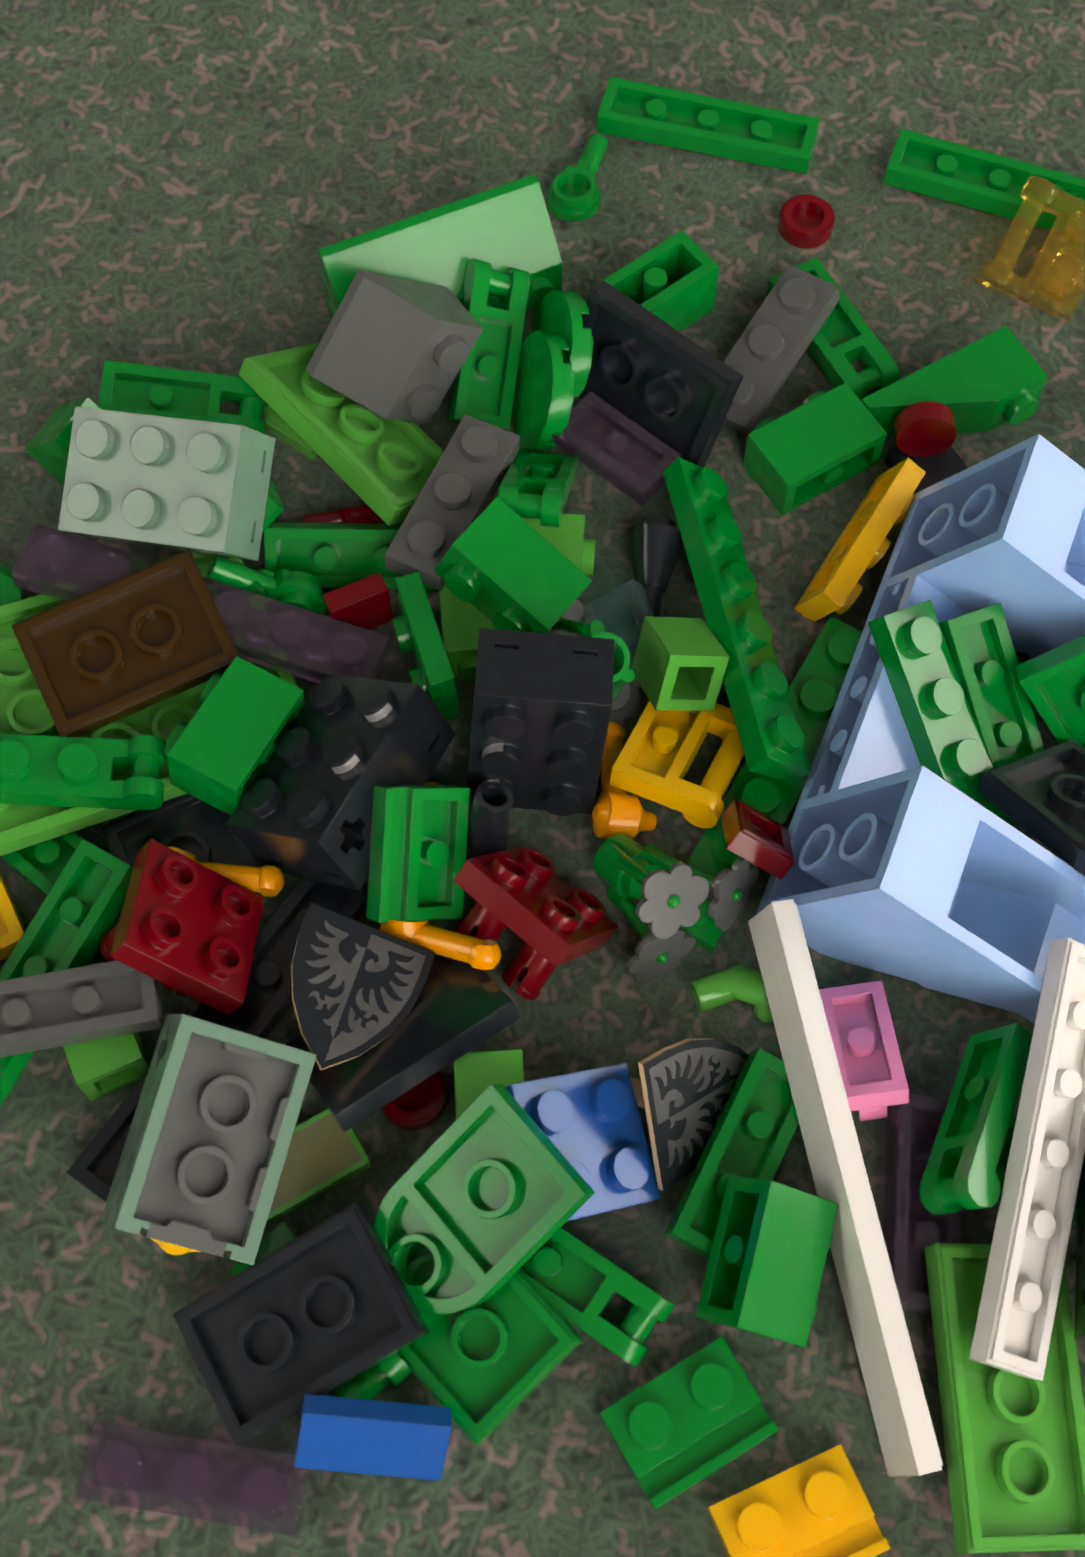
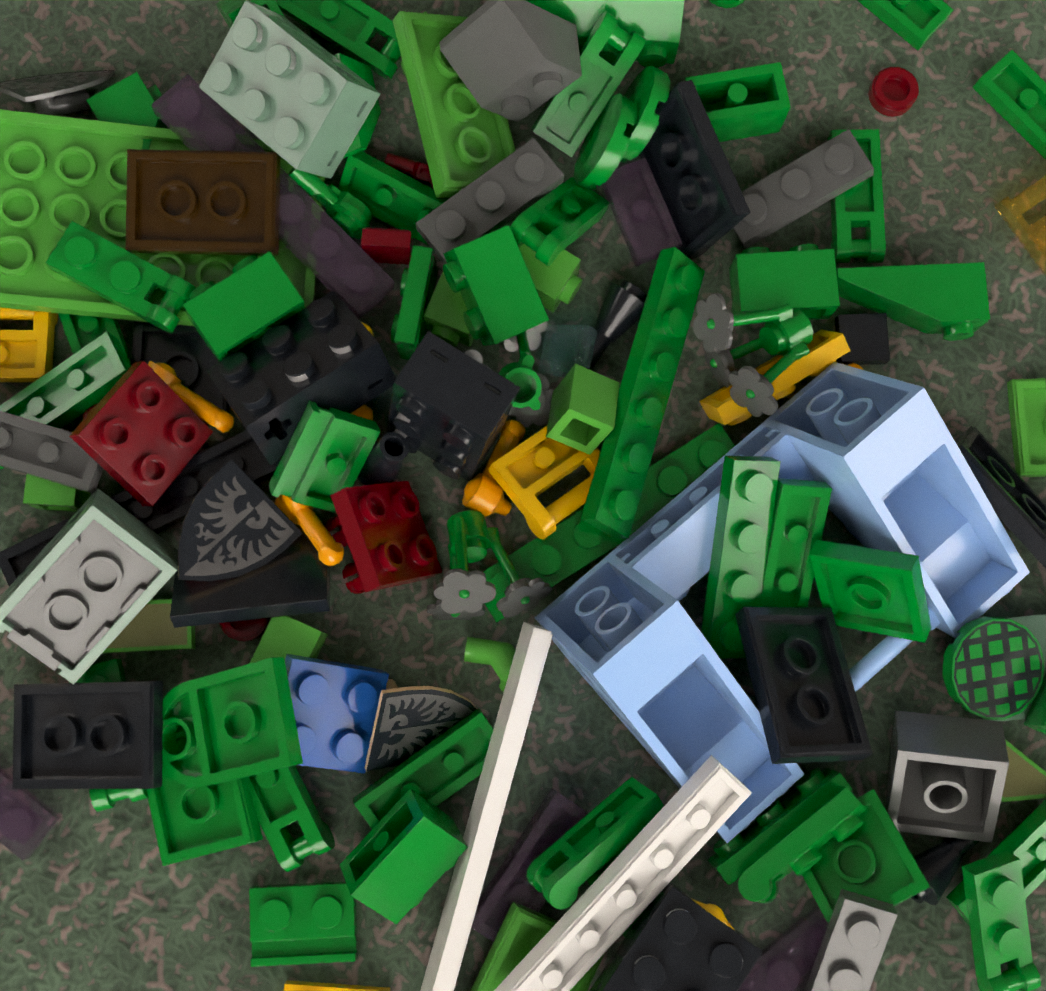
camera: 25 degrees right, 15 degrees up
(373, 1437) = (97, 828): blue tile -> none
(757, 839) = (560, 569): dark red tile -> none
(847, 487) = (784, 334): none -> plant
(866, 1048) = (551, 746): bright pink plate -> none
(925, 429) = (871, 315): dark red tile -> none

